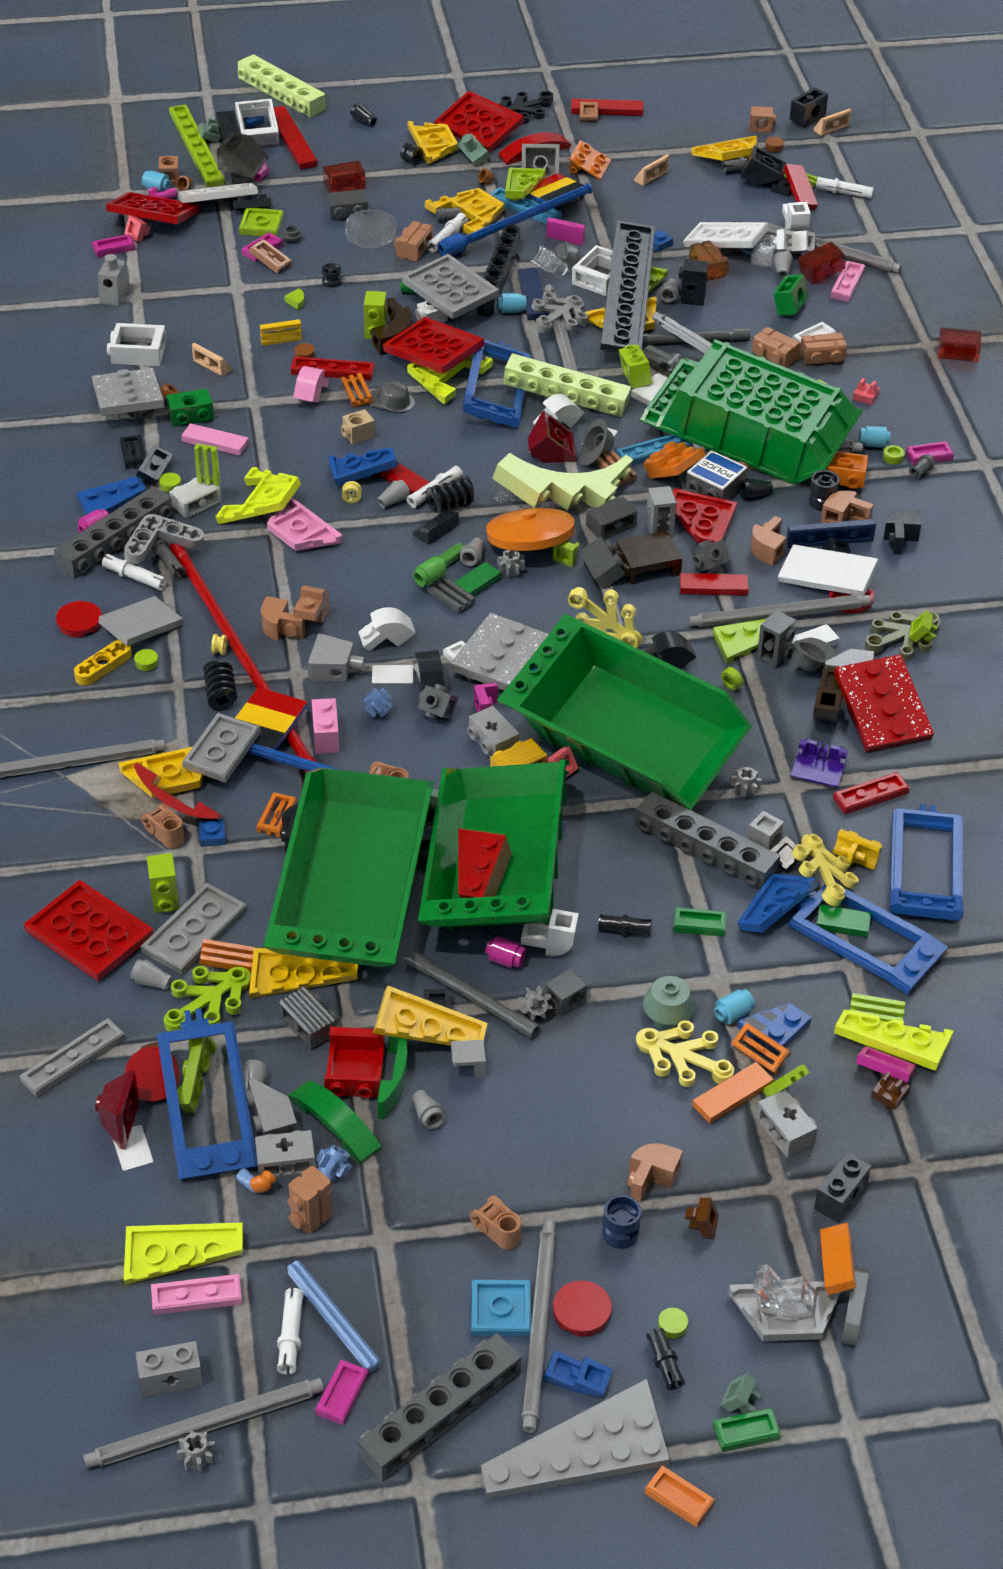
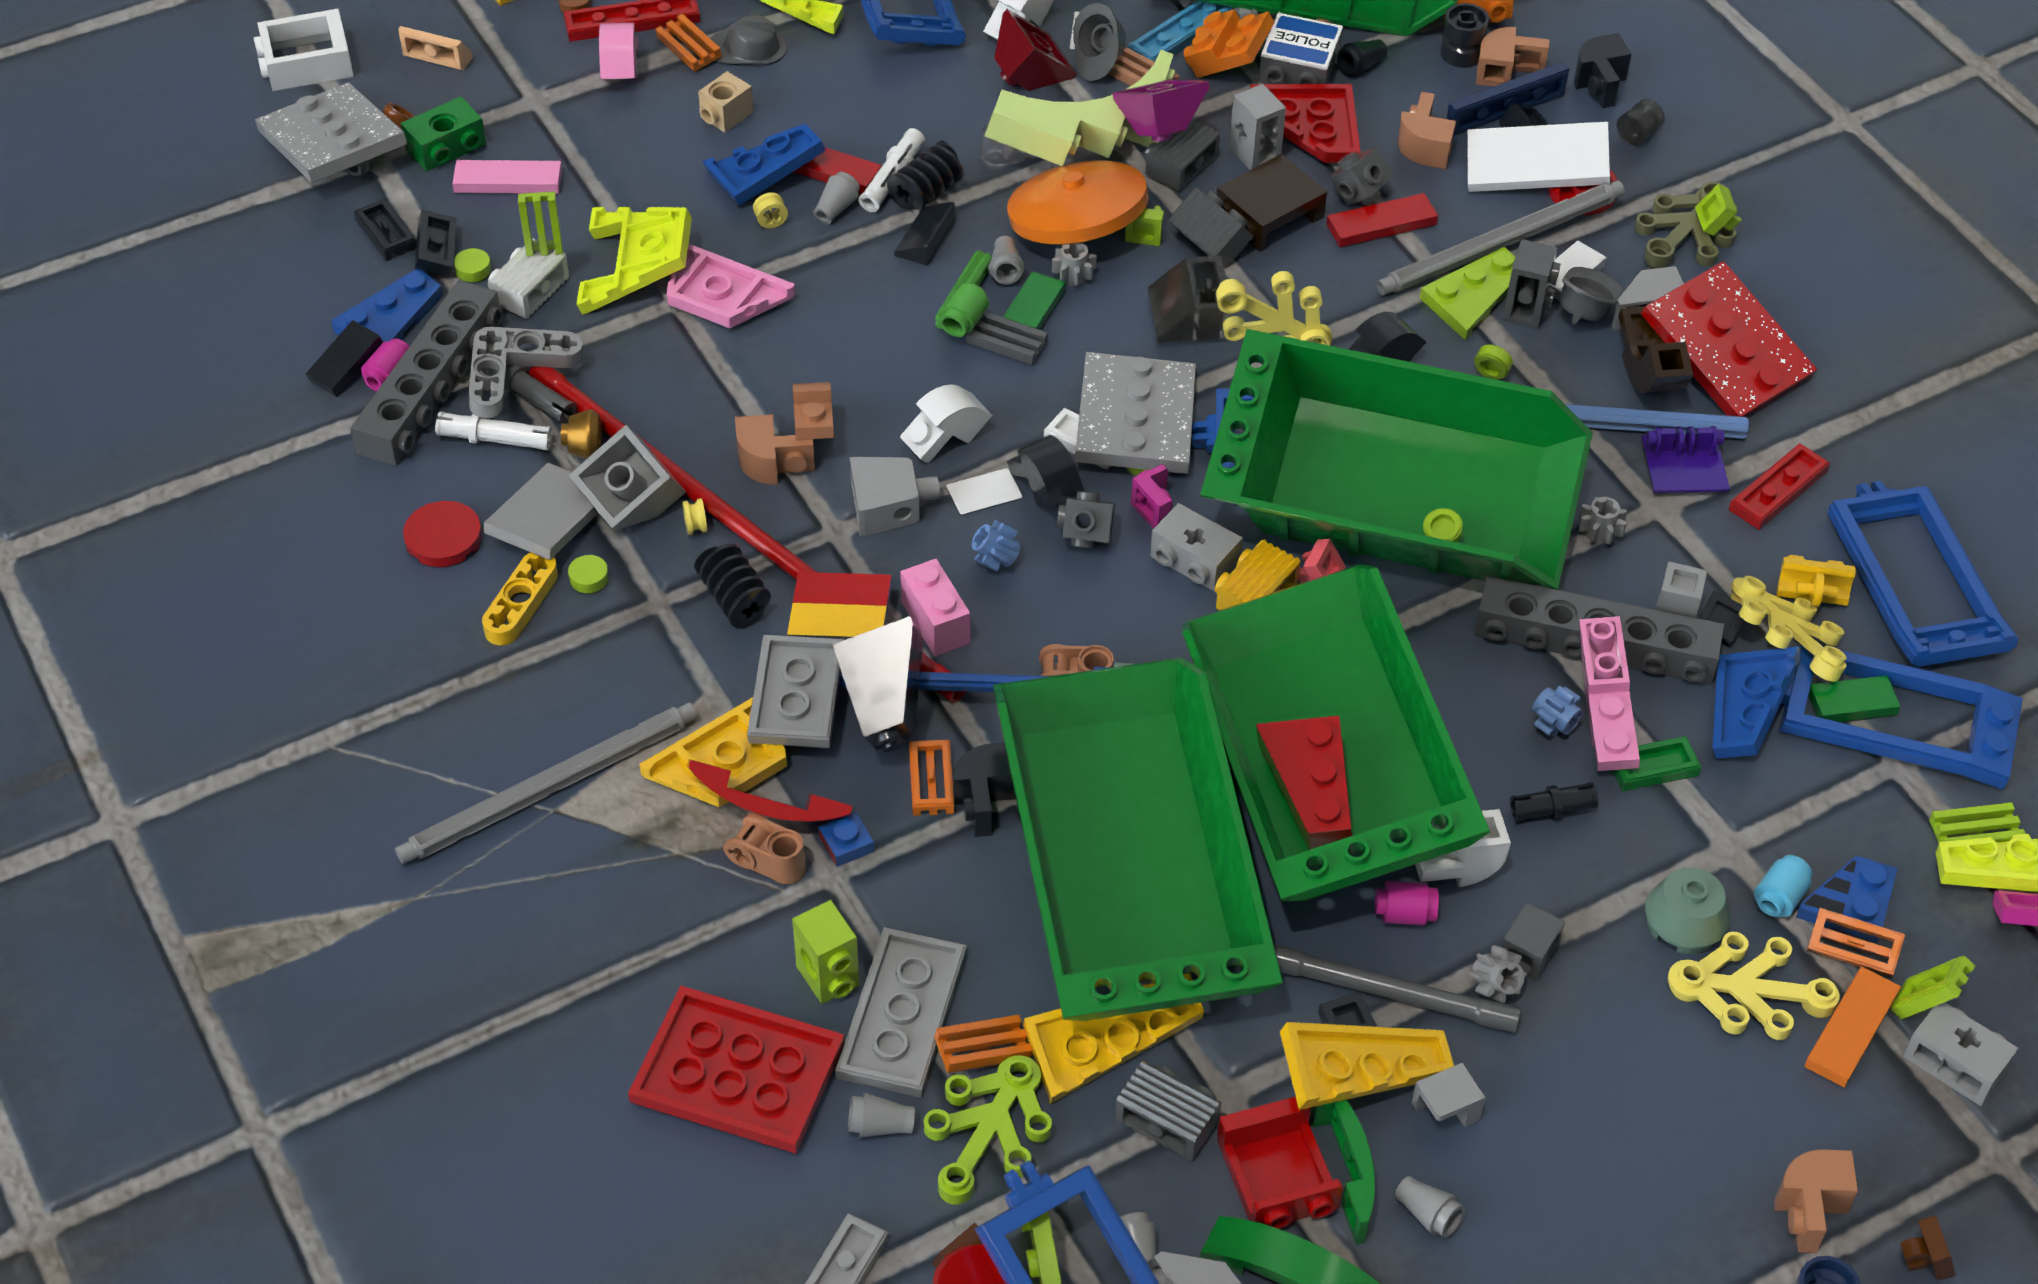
camera: 20 degrees left, 5 degrees up
(70, 514) = (344, 358): none -> black tile
(180, 586) = (582, 433): none -> pearl gold cone
(189, 615) = (626, 481): none -> light grey slope
(266, 752) = (883, 681): none -> slope
(557, 594) = (1186, 301): none -> clear smoke slope
(604, 486) = (1161, 106): none -> magenta slope
(640, 757) = (1443, 525): none -> lime tile
(654, 876) = (1557, 711): none -> medium blue gear
(689, 874) = (1608, 694): none -> bright pink slope
(801, 732) = (1645, 420): none -> medium blue axle
(907, 566) = (1640, 121): none -> clear smoke wheel

